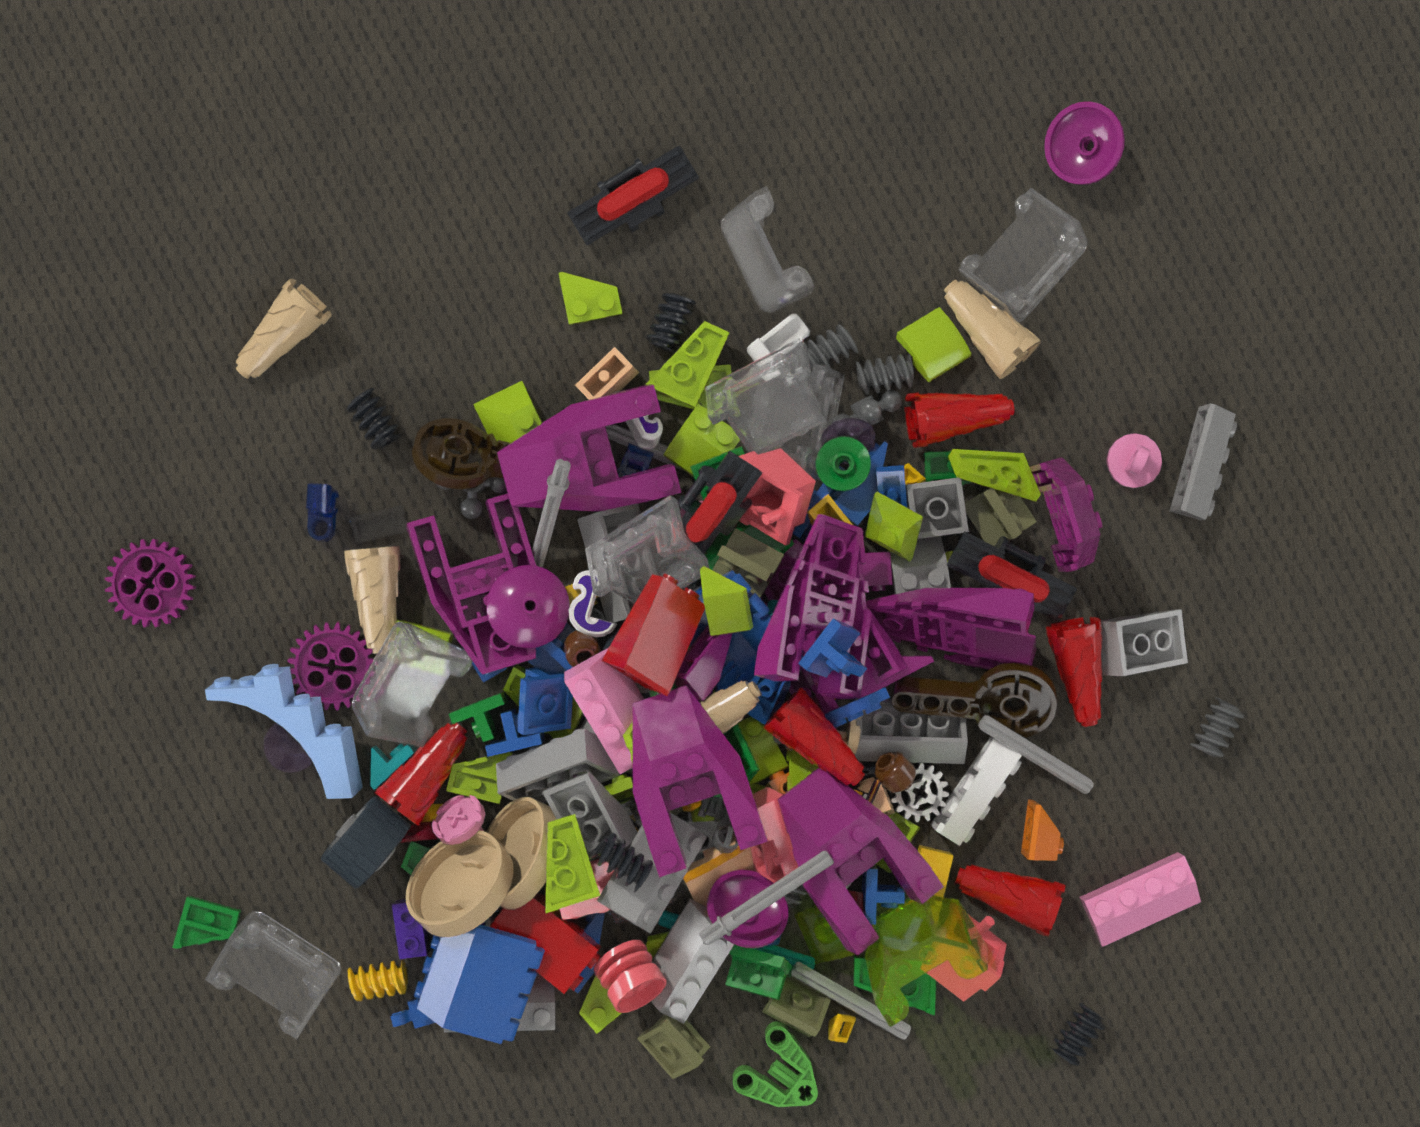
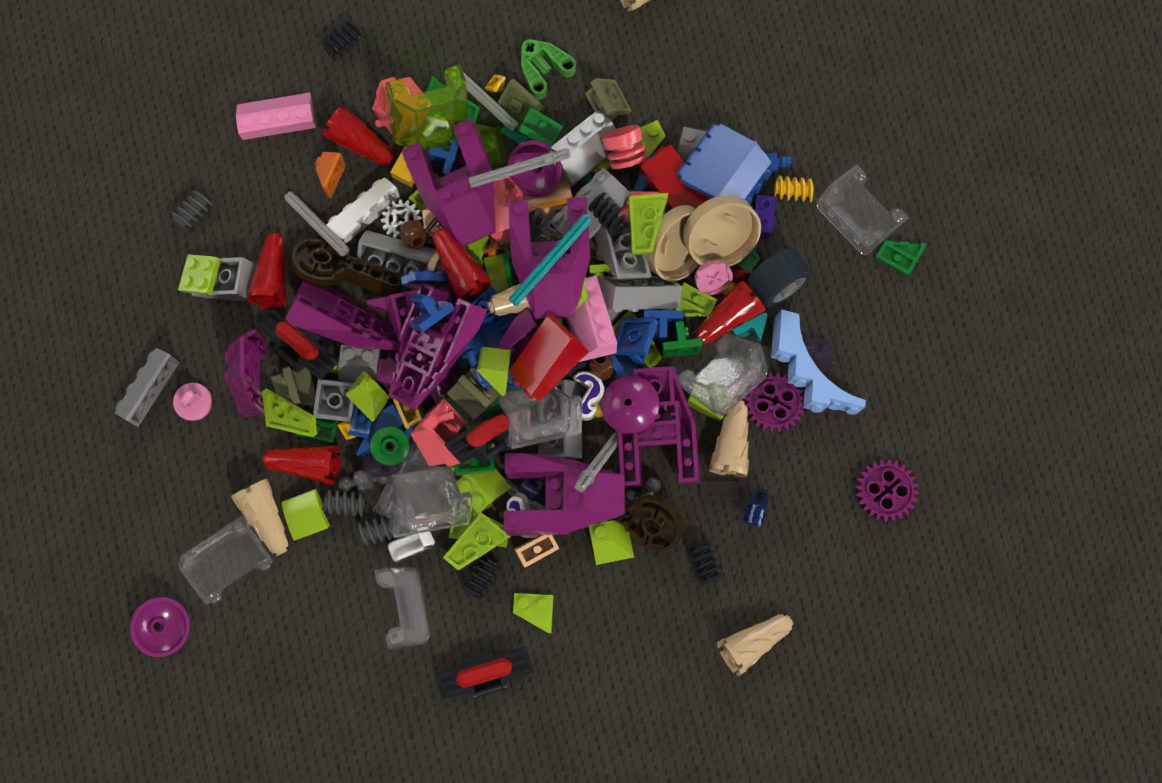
camera: 165 degrees left, 10 degrees down
(684, 769) = (551, 258): none -> teal axle
(1178, 639) = (199, 274): none -> lime plate

